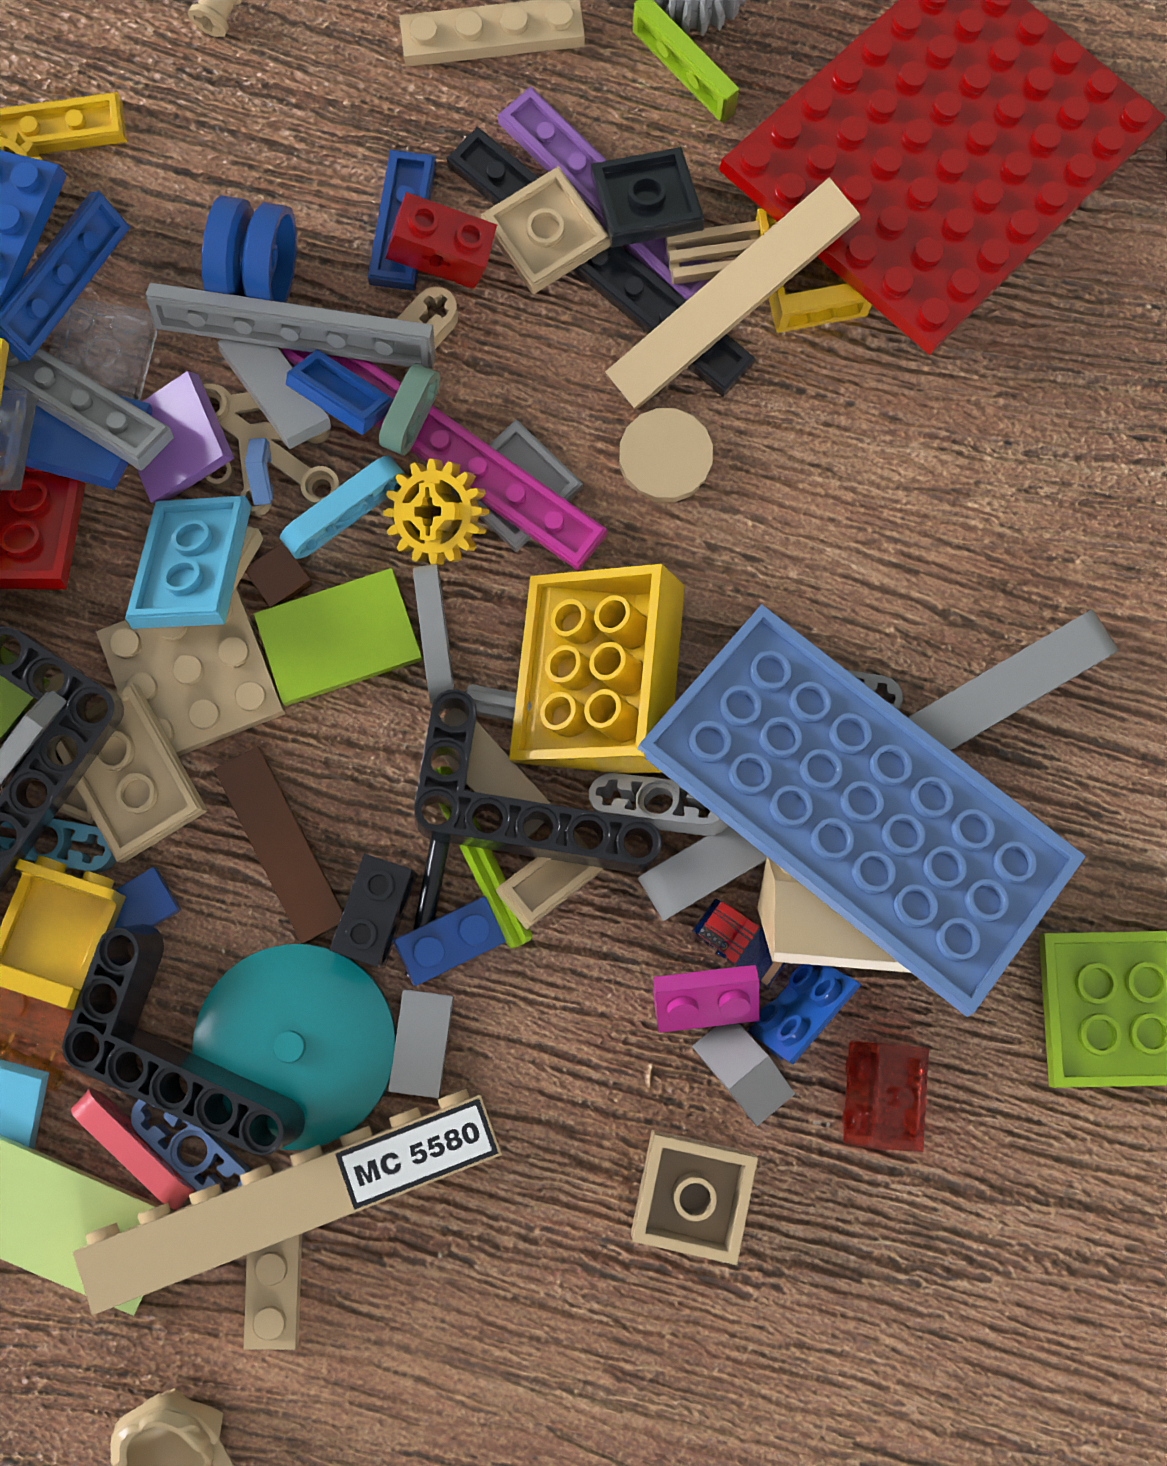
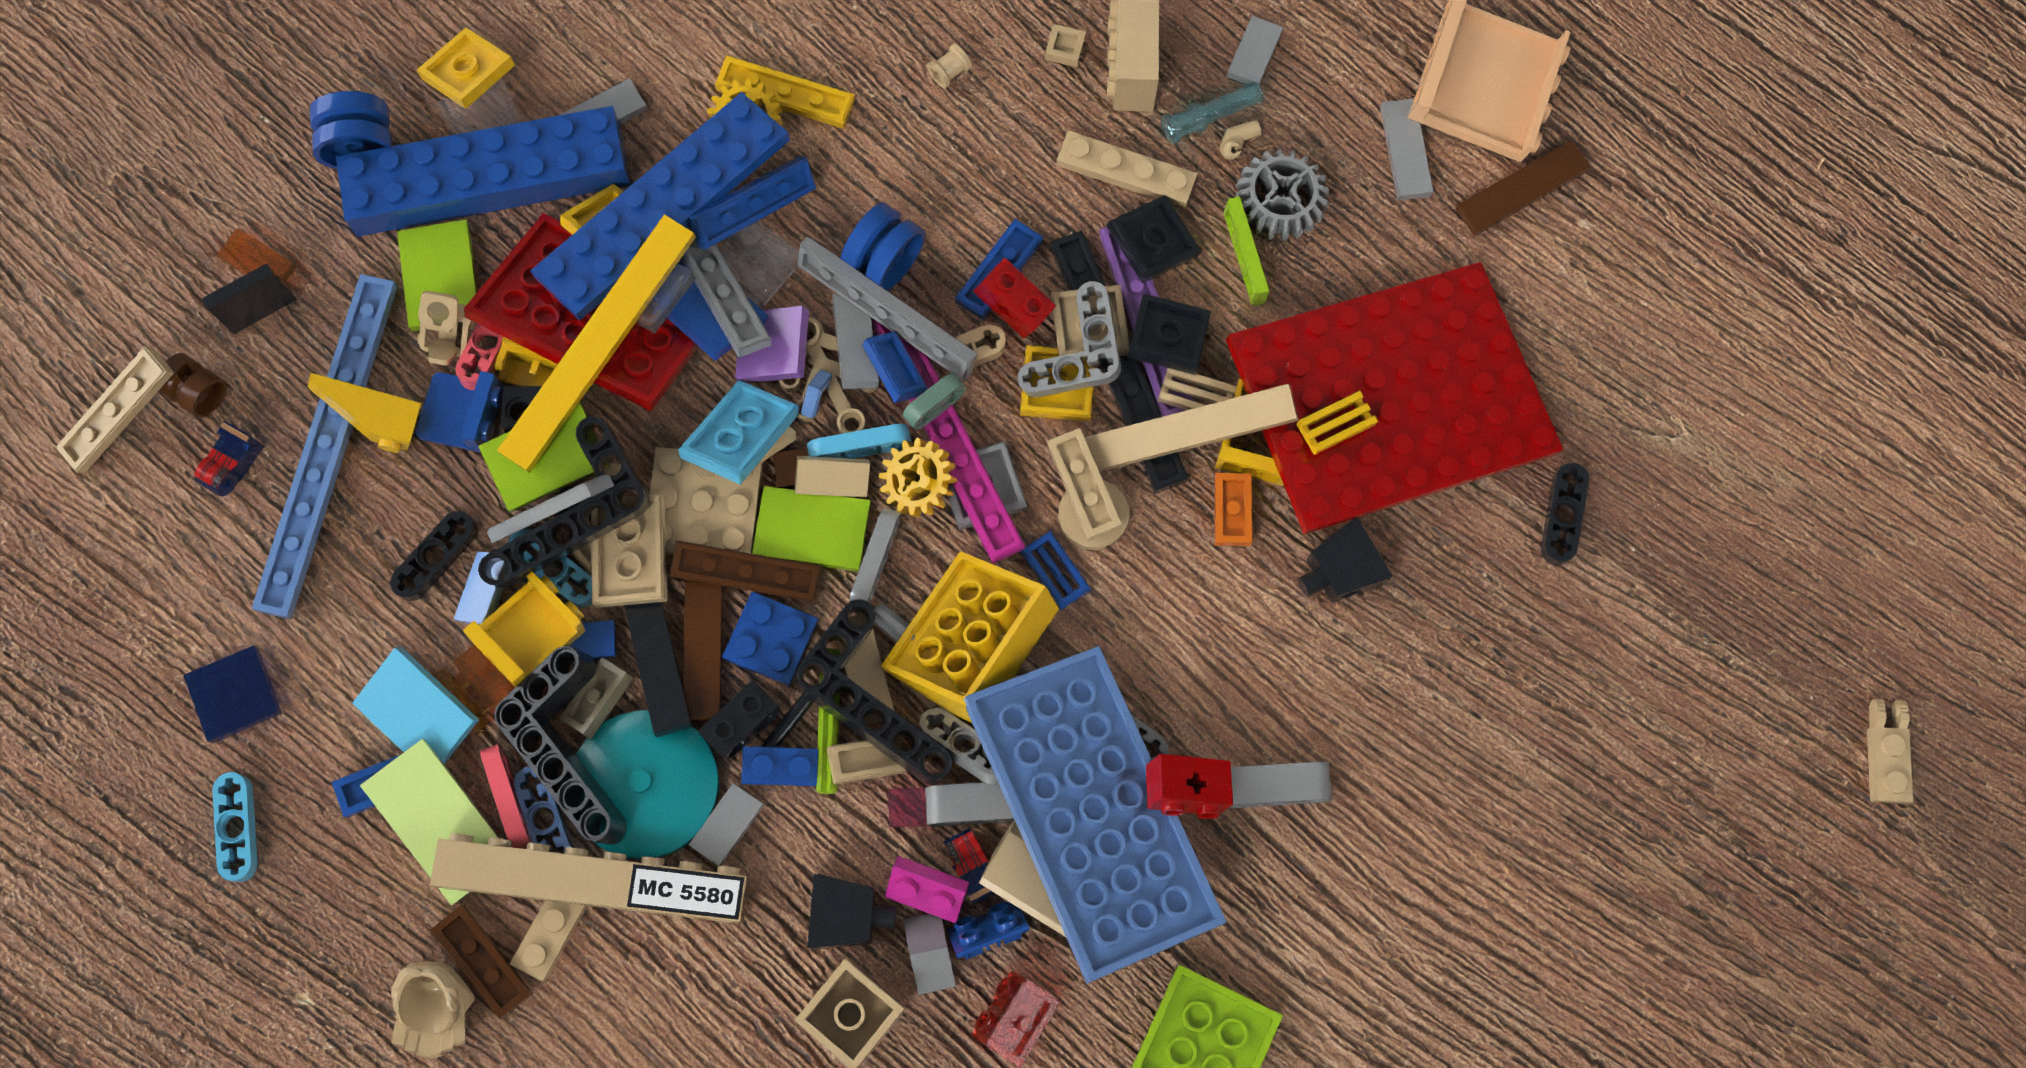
camera: 25 degrees right, 5 degrees down
(182, 973) = (596, 698): none -> dark tan plate
(207, 1364) = (481, 961): none -> reddish brown plate
(239, 897) = (658, 668): none -> black tile
(283, 727) = (745, 571): none -> reddish brown tile
(331, 561) = (832, 476): none -> tan tile
(357, 793) = (770, 639): none -> blue plate
(543, 327) = (1066, 405): none -> yellow tile
(568, 95) = (1153, 239): none -> black tile
(570, 260) = (1093, 351): none -> light grey beam
(622, 1077) = (845, 914): none -> black torso
(627, 911) = (907, 808): none -> clear pink tile
(639, 422) = (1084, 484): none -> tan plate
(662, 526) = (1072, 596): none -> blue tile
(826, 369) = (1233, 509): none -> orange plate
(922, 174) = (1361, 410): none -> yellow tile
(959, 716) = (1189, 785): none -> red brick
(991, 369) = (1345, 565): none -> black torso

